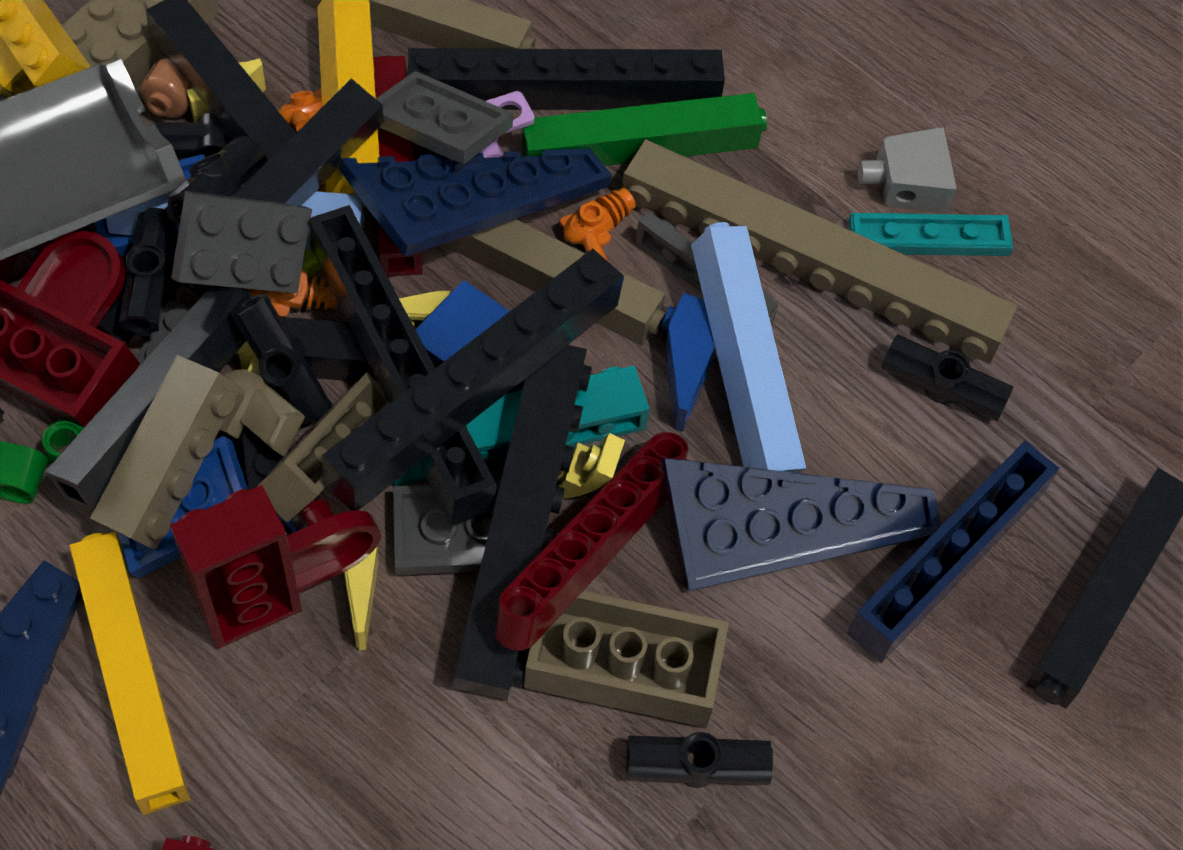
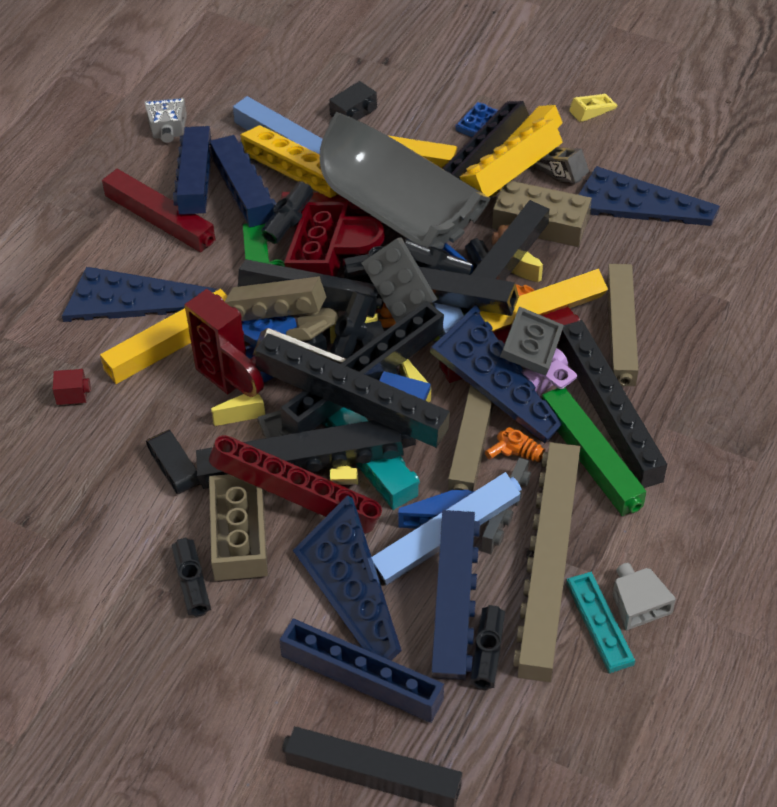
camera: 80 degrees right, 10 degrees down
(435, 733) = (173, 461): none -> black beam
(873, 378) = (453, 595): none -> dark blue brick

